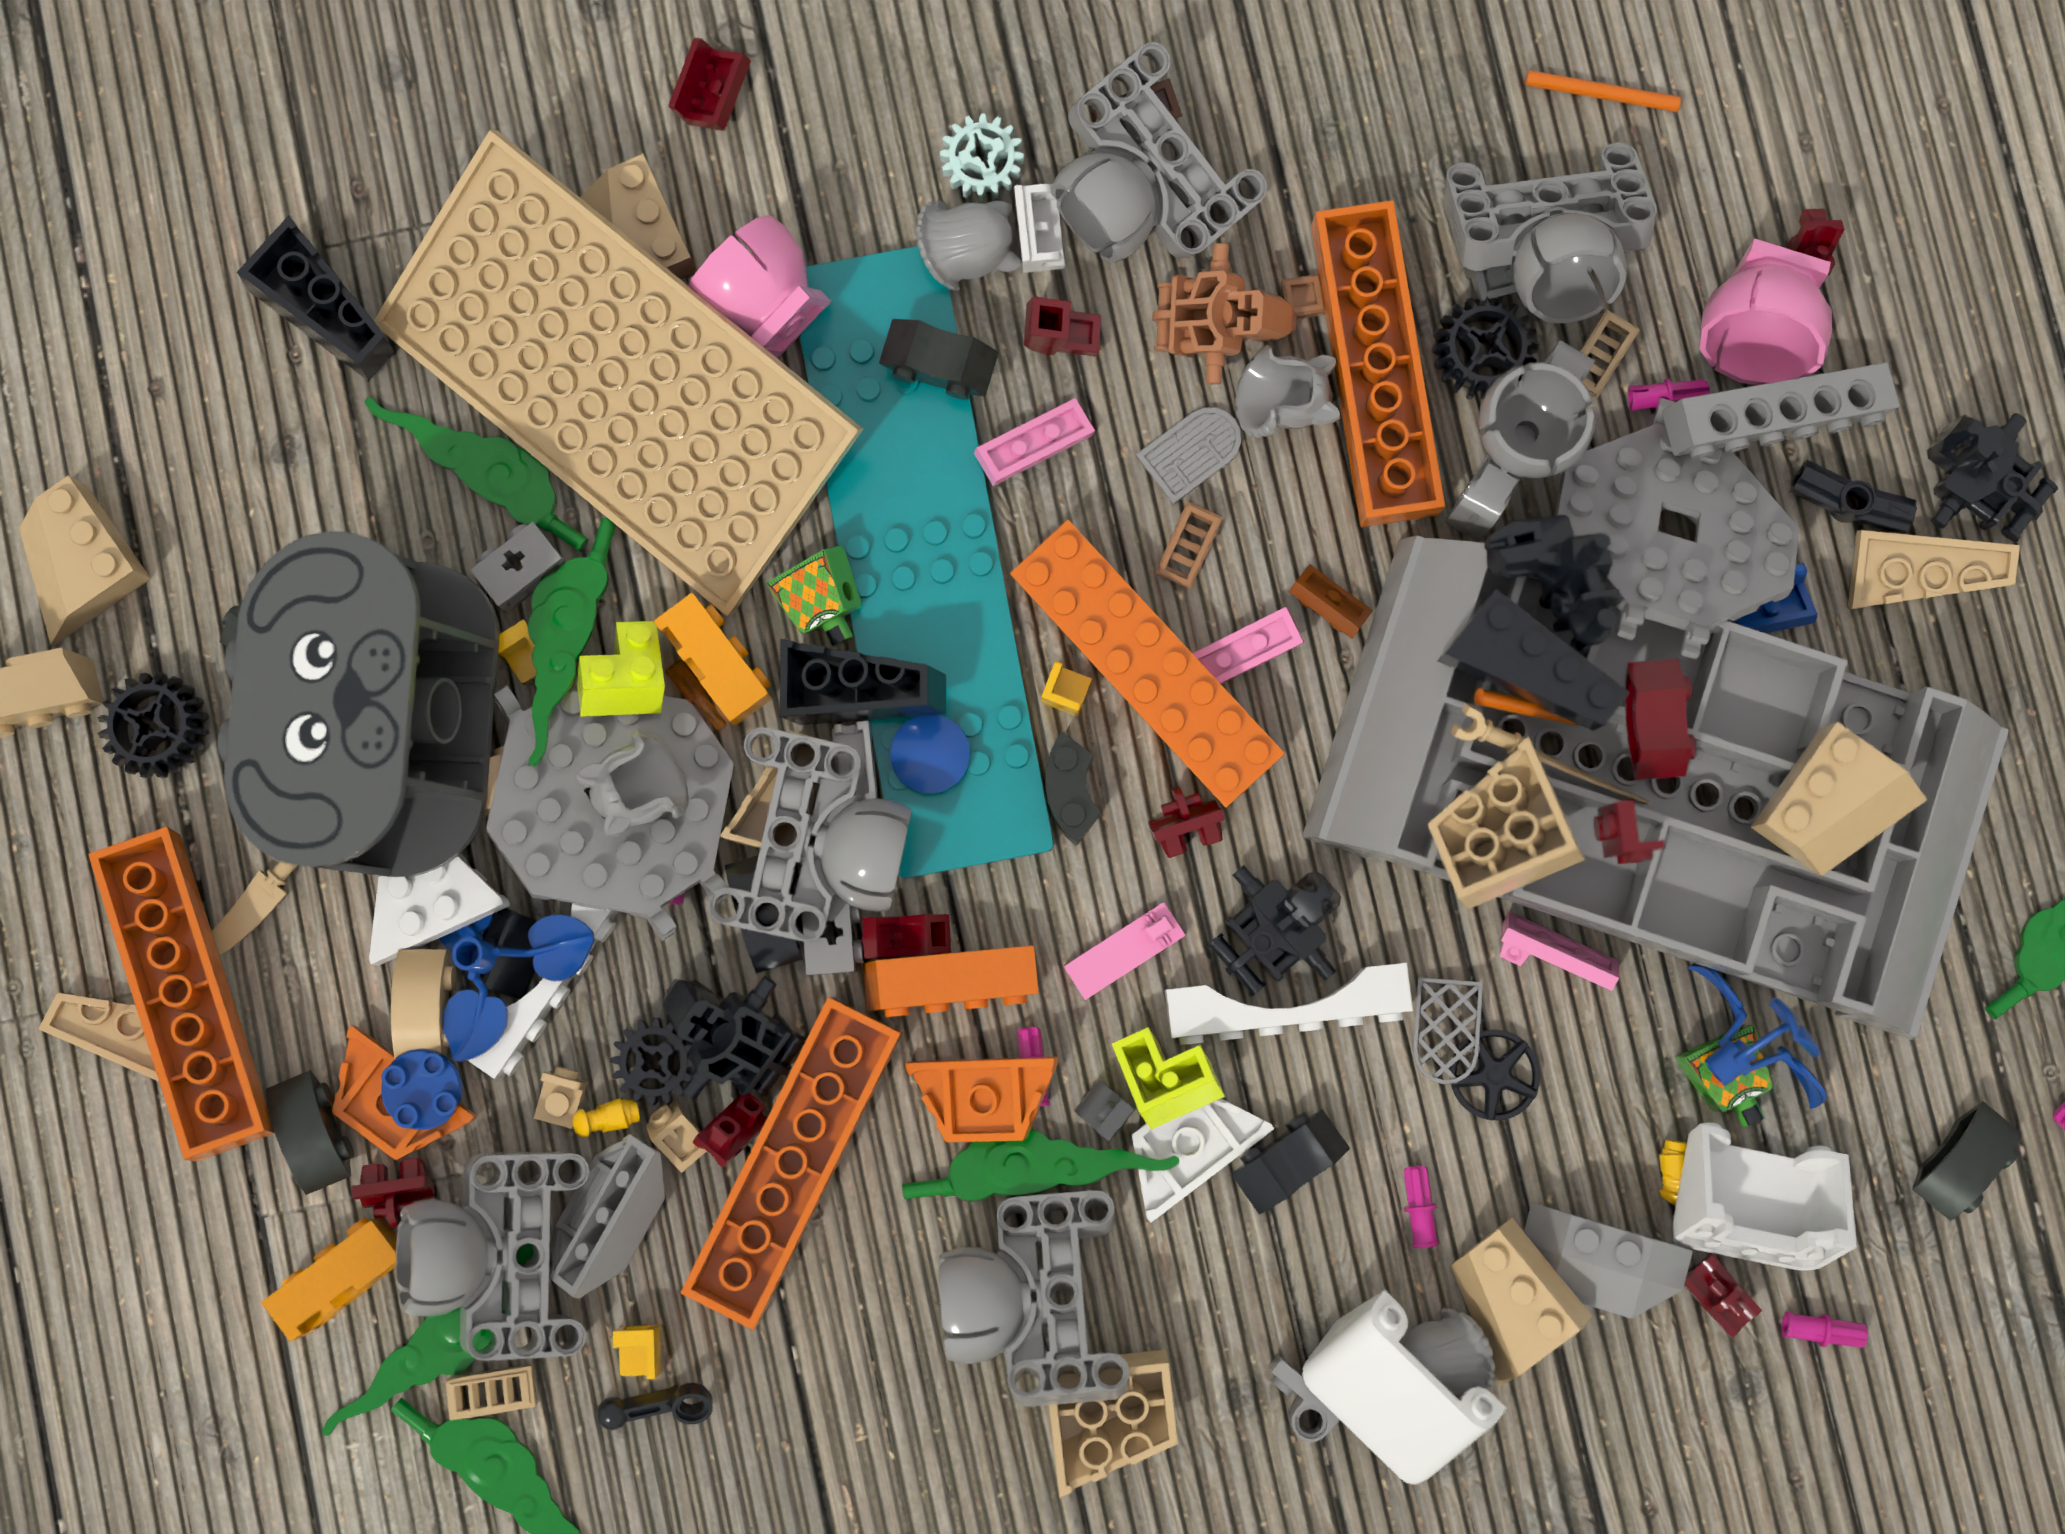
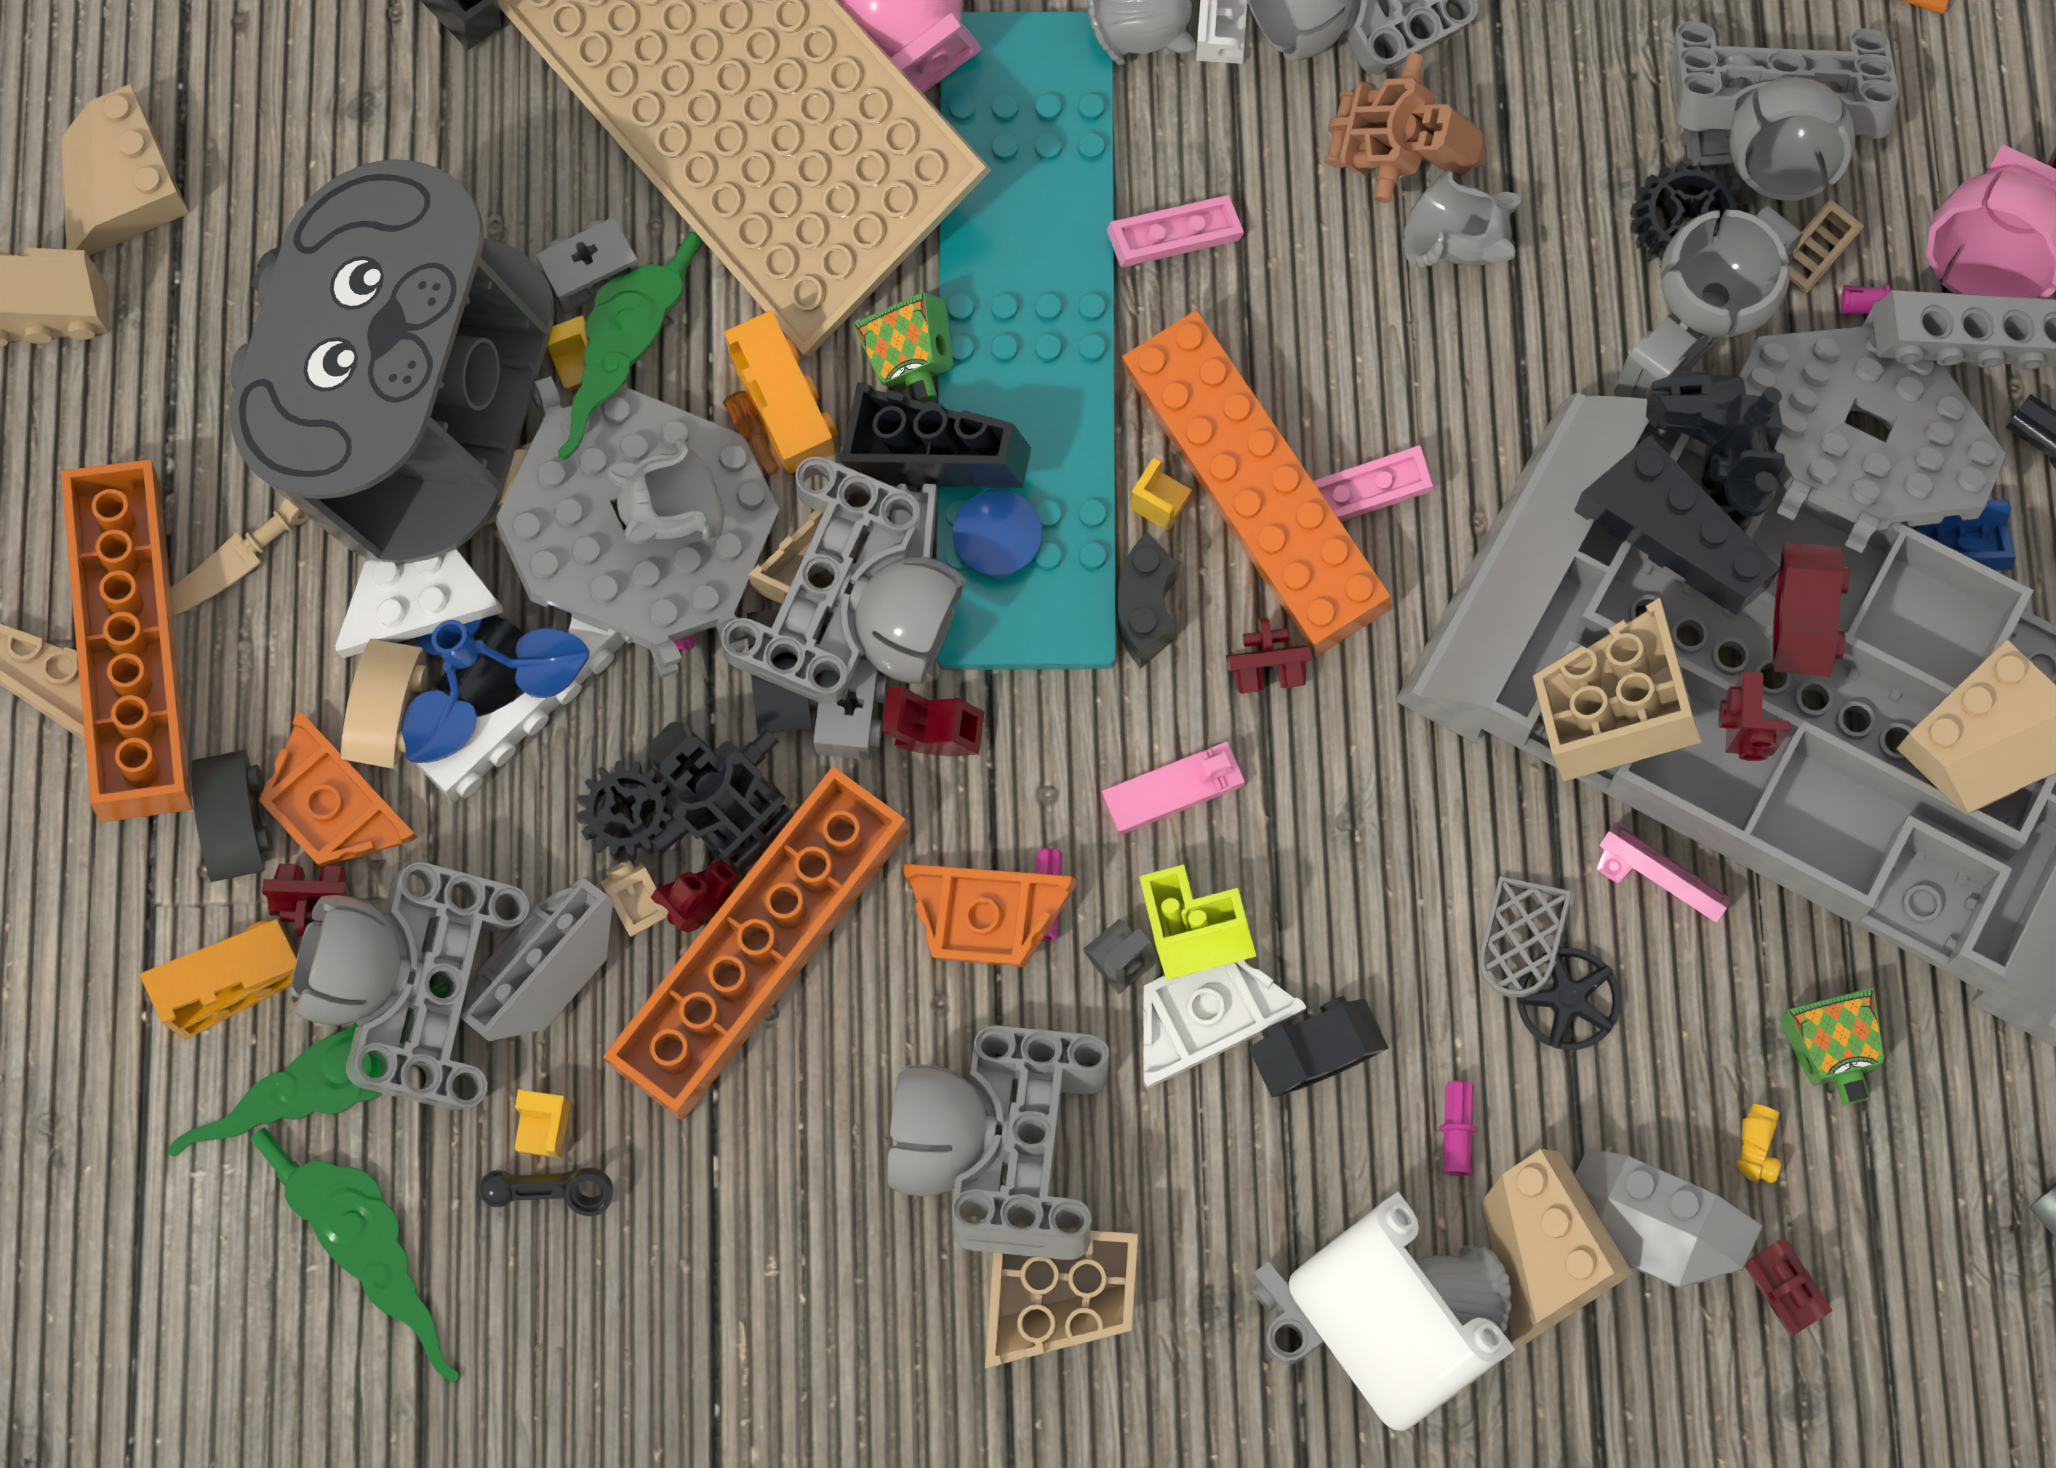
camera: 10 degrees right, 10 degrees down
(161, 711) = (173, 333): black gear -> none
(421, 1089) = (363, 789): blue dish -> none
(455, 1397) = (326, 1133): tan slope -> none
(492, 470) = (579, 162): green piece -> none
(560, 1096) = (513, 832): tan bracket -> none
(607, 1117) = (559, 862): yellow arm -> none
(625, 681) = (680, 393): neon yellow brick -> none
(938, 358) = (1087, 122): pearl dark grey brick -> none
(950, 978) = (971, 777): orange wedge -> none
(1028, 1168) = (1020, 999): green piece -> none
(1055, 328) = (1219, 119): dark red brick -> none
(1192, 451) = (1346, 274): light grey window -> none
(1203, 514) = (1345, 338): medium nougat slope -> none
(1278, 927) = (1351, 789): black piece -> none
(1304, 295) = (1500, 133): medium nougat tile -> none
(1330, 601) = (1464, 446): dark orange plate -> none
(1370, 992) = (1444, 880): white arch -> none
(1377, 364) = (1566, 214): orange brick -> none
(1486, 731) = (1636, 606): tan sword -> none
(1516, 705) = (1662, 578): orange bar -> none
(1735, 1057) = (1843, 1014): blue plant -> none
(1763, 1203) = (1849, 1194): white windscreen -> none
(1824, 1330) = (1903, 1353): dark pink axle -> none

